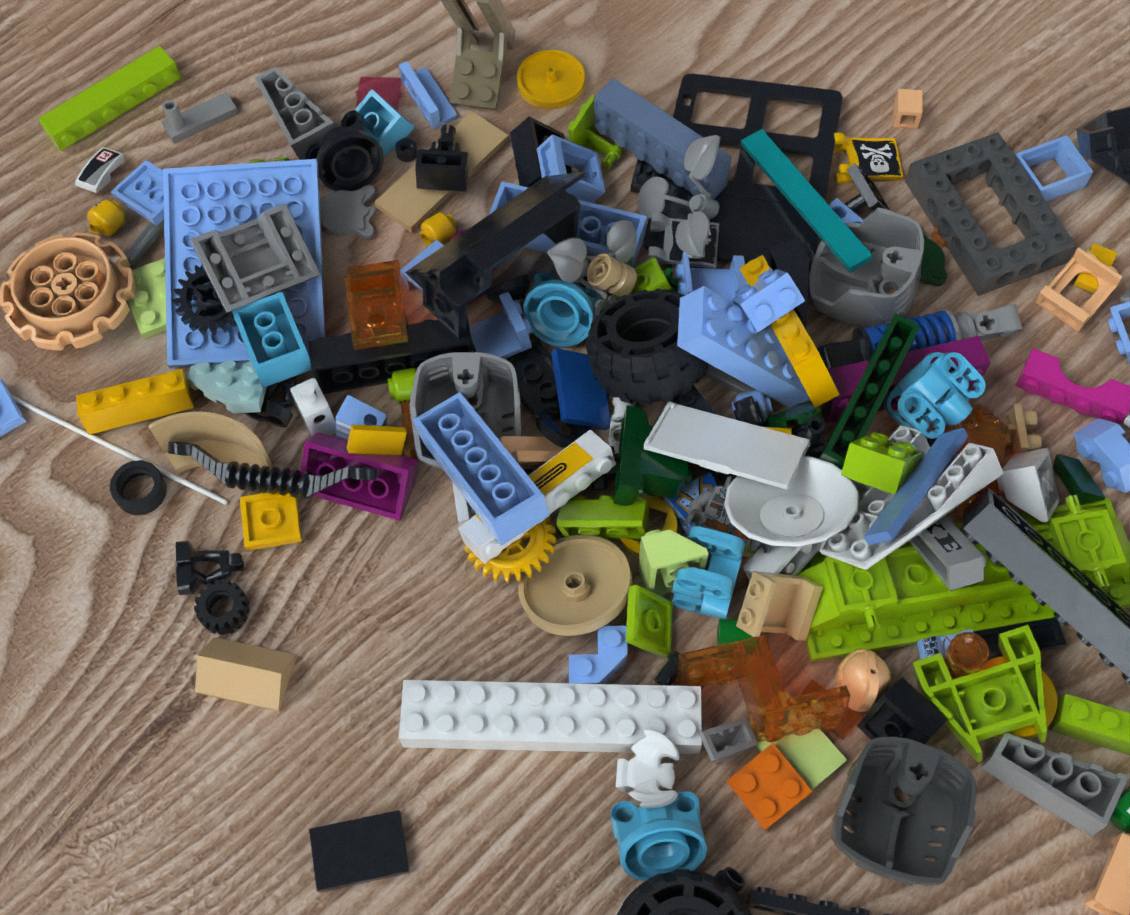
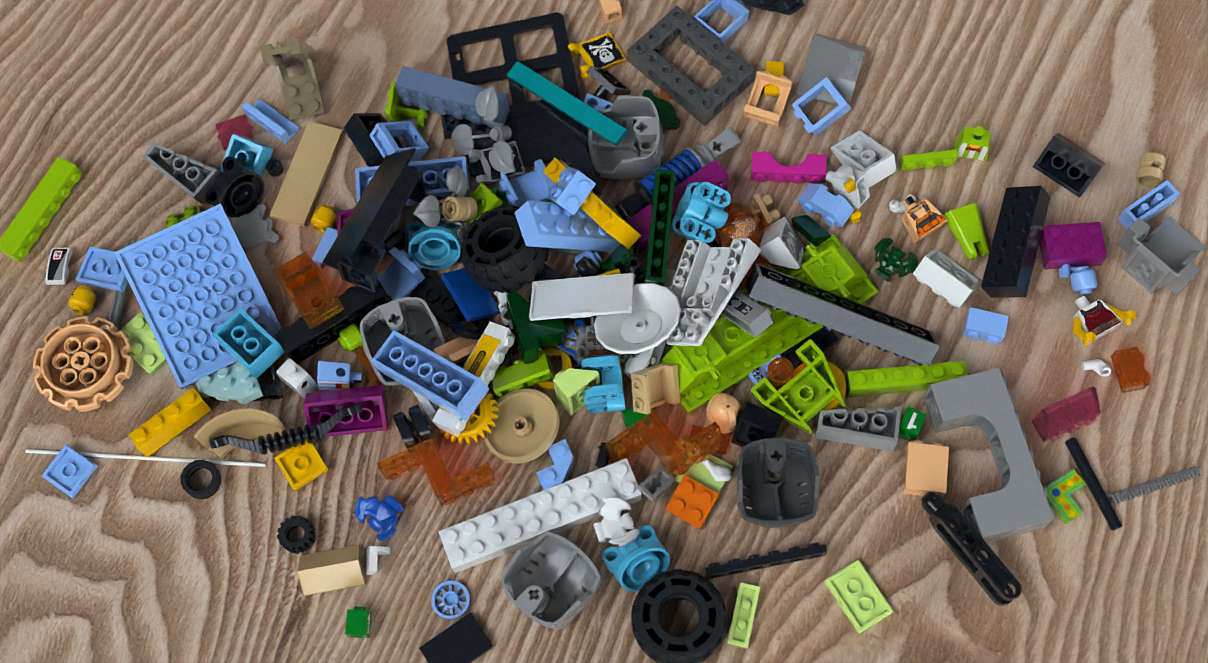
camera: 20 degrees left, 5 degrees up
(188, 576) = (263, 522): black piece -> none
(195, 287) = (191, 323): black gear -> none
(197, 118) = (110, 201): light grey piece -> none
(245, 759) = (358, 623): none -> green brick
(255, 258) = (212, 291): light grey slope -> none
(305, 673) = (371, 557): none -> white tile
(343, 626) = (382, 514): none -> blue animal
(376, 440) = (350, 383): yellow tile -> none
(381, 781) = (450, 599): none -> light blue wheel
(431, 531) = (413, 429): none -> black wheel
(436, 608) = (429, 456): none -> clear orange bracket
(442, 167) = (308, 171): black brick -> none
(539, 811) = (557, 578): none -> light grey piece
(550, 79) = (353, 75): yellow piece -> none
(649, 621) = (578, 430): lime tile -> none
(731, 878) = (691, 566): black plate -> none
(823, 760) = (718, 472): none -> white animal
(880, 462) = (684, 272): lime slope -> none
(915, 487) = (711, 280): medium blue tile -> none

